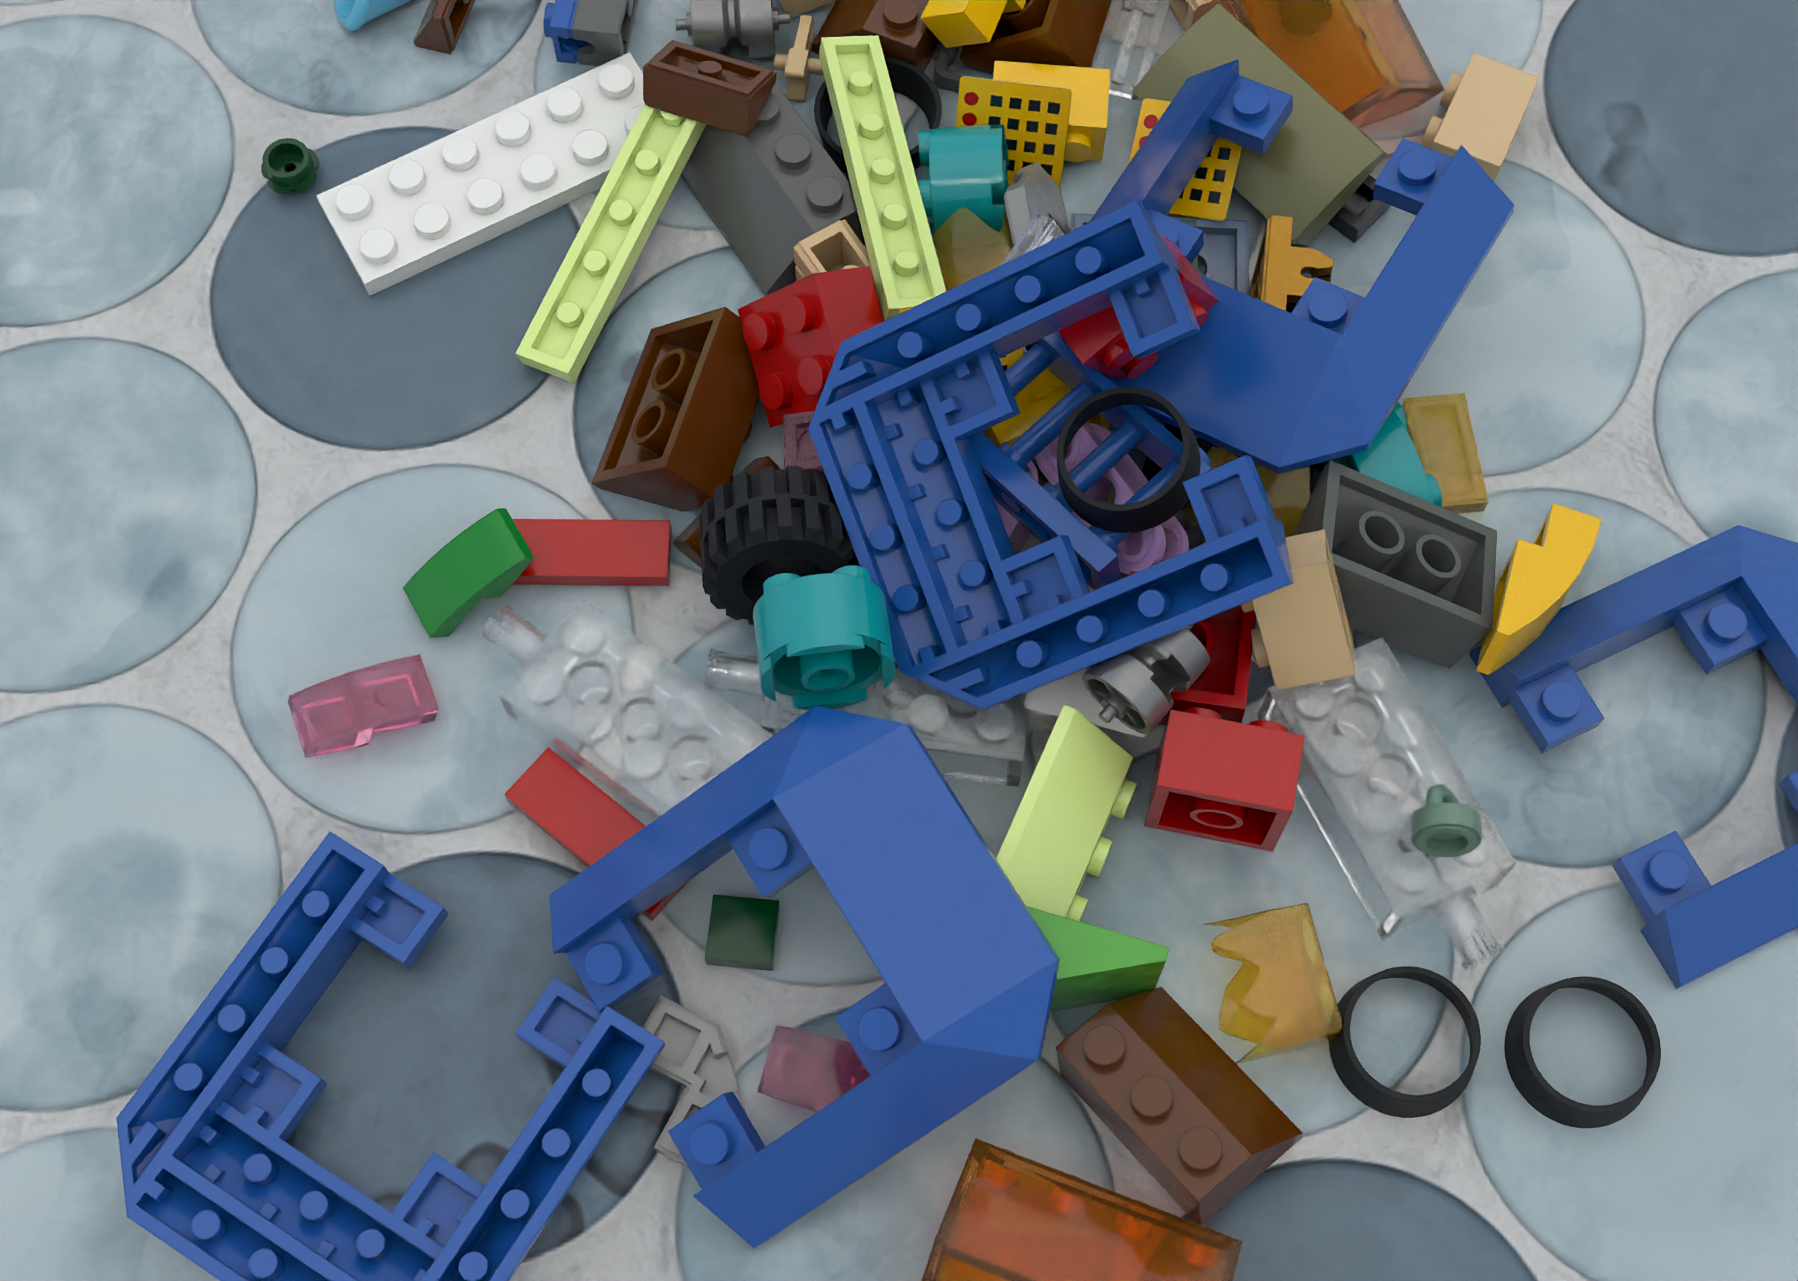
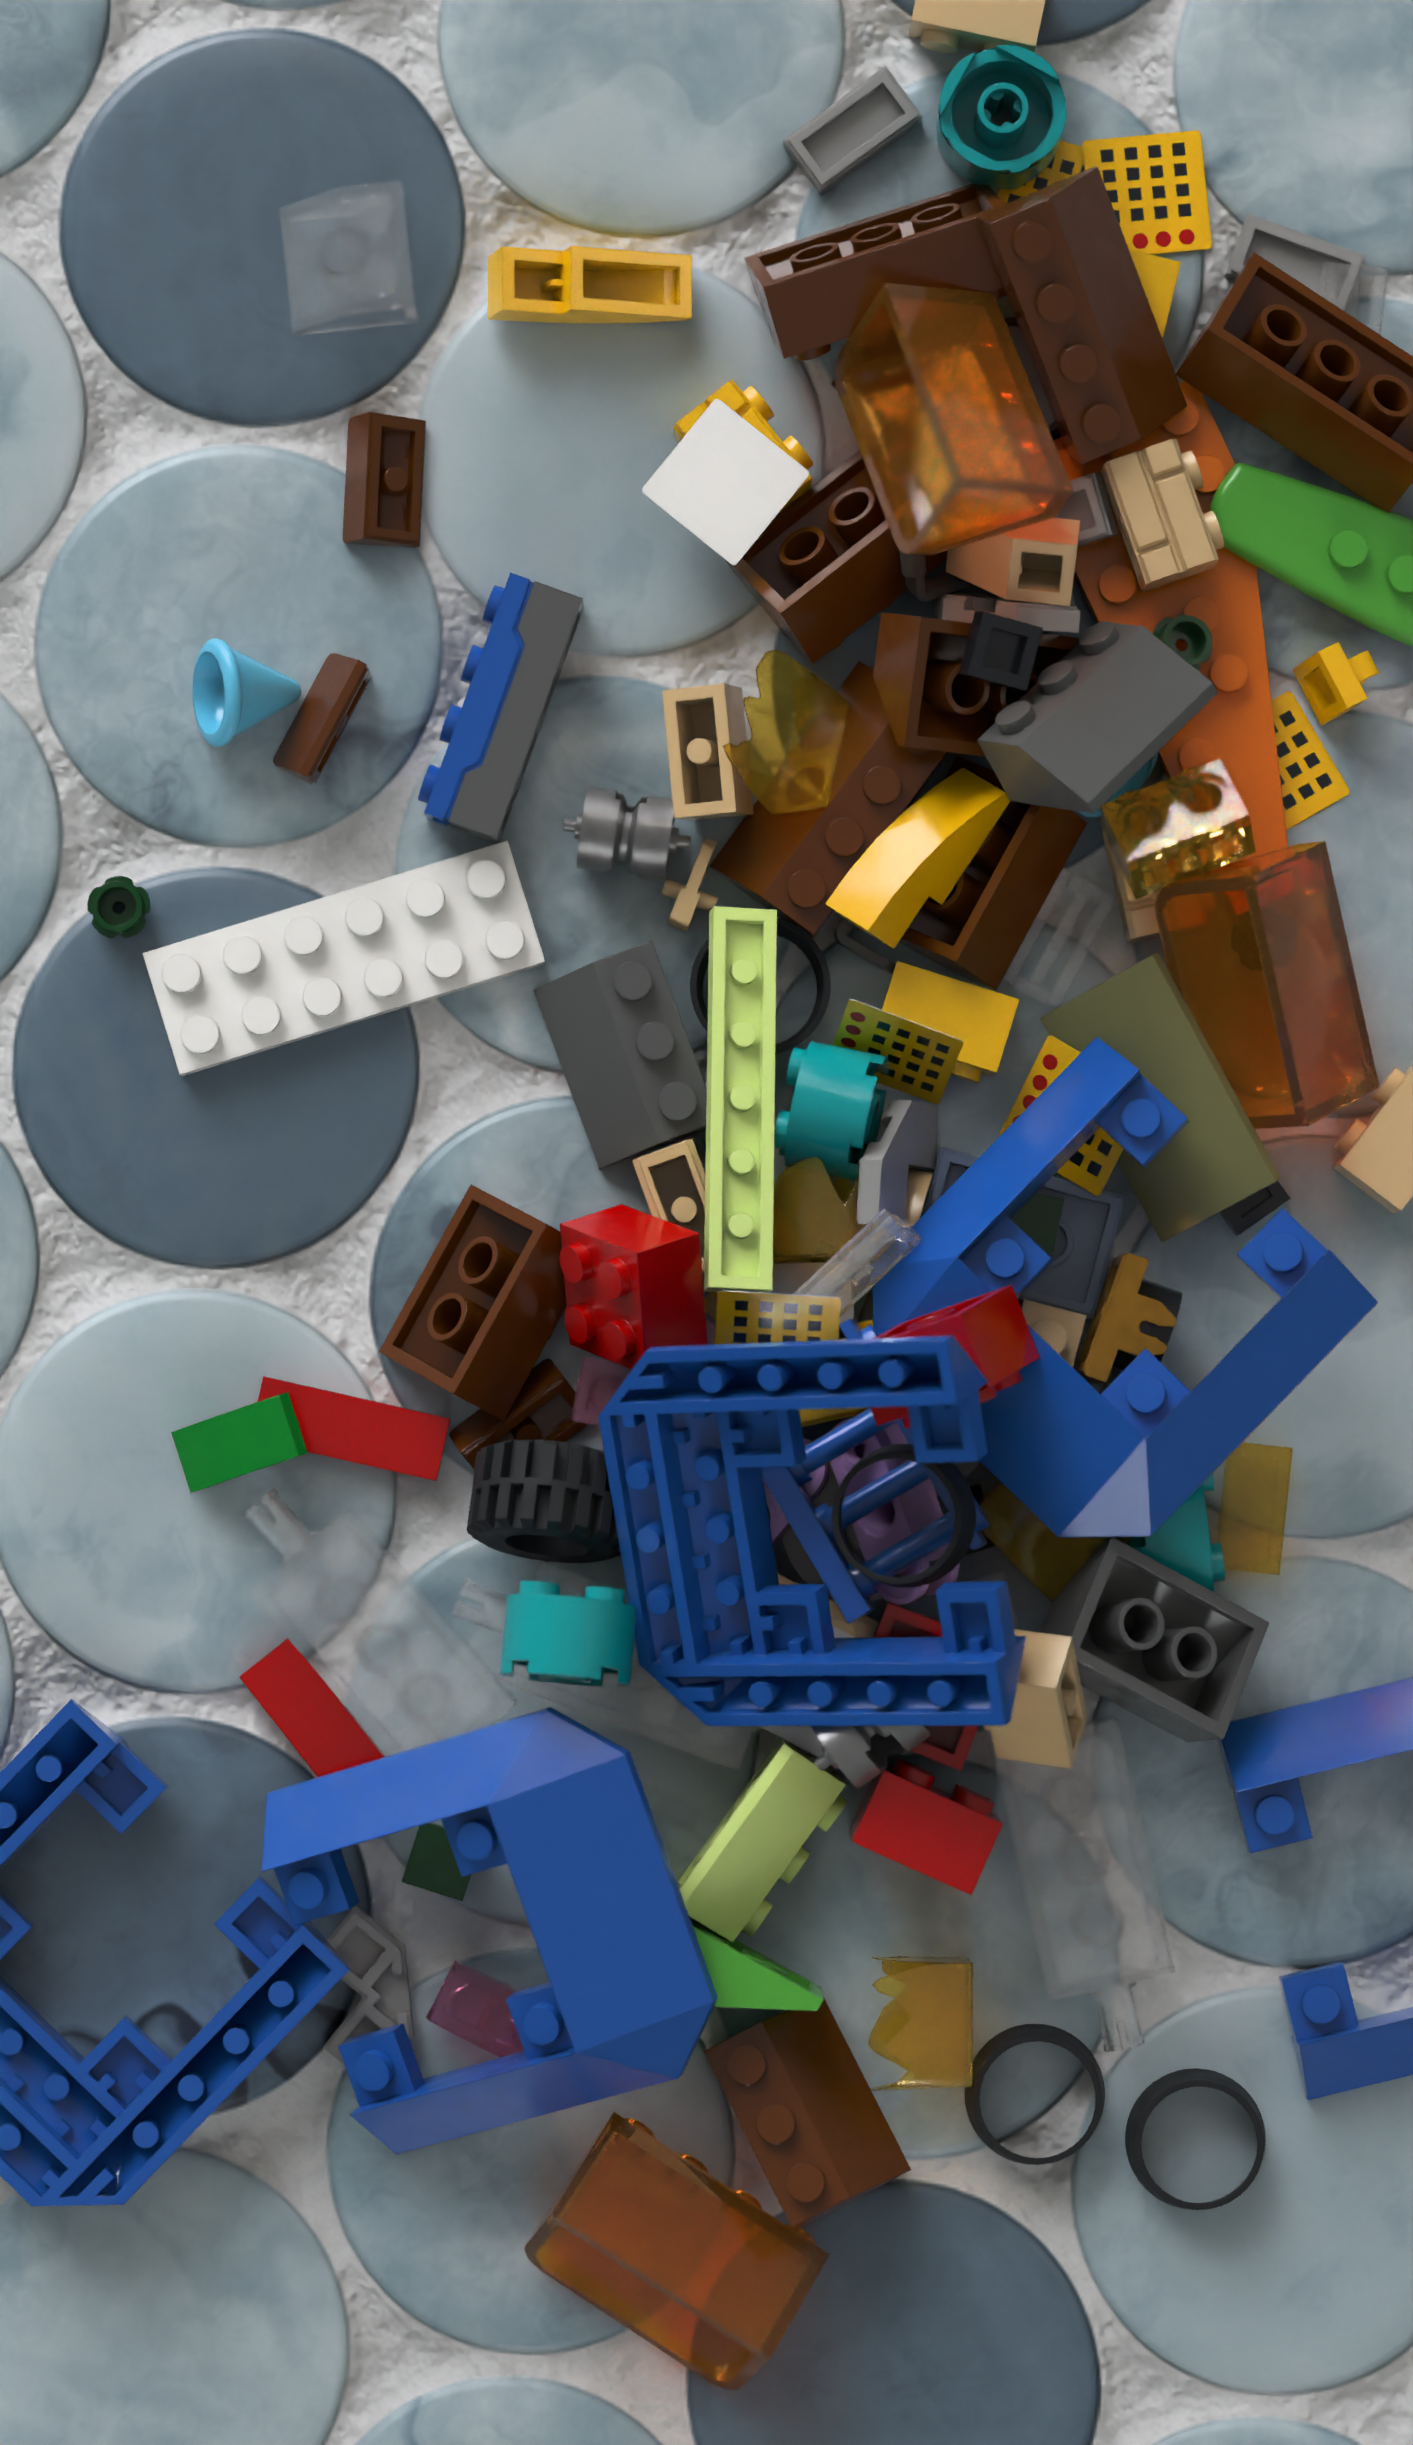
camera: 10 degrees right, 20 degrees up
(362, 702) = (115, 1554): clear pink slope -> none
(609, 243) = (464, 1061): yellowish green plate -> none
(707, 87) = (580, 947): reddish brown slope -> none
(1445, 825) = (1110, 1940): sand green tile -> none
(1536, 583) = (1291, 1686): yellow slope -> none

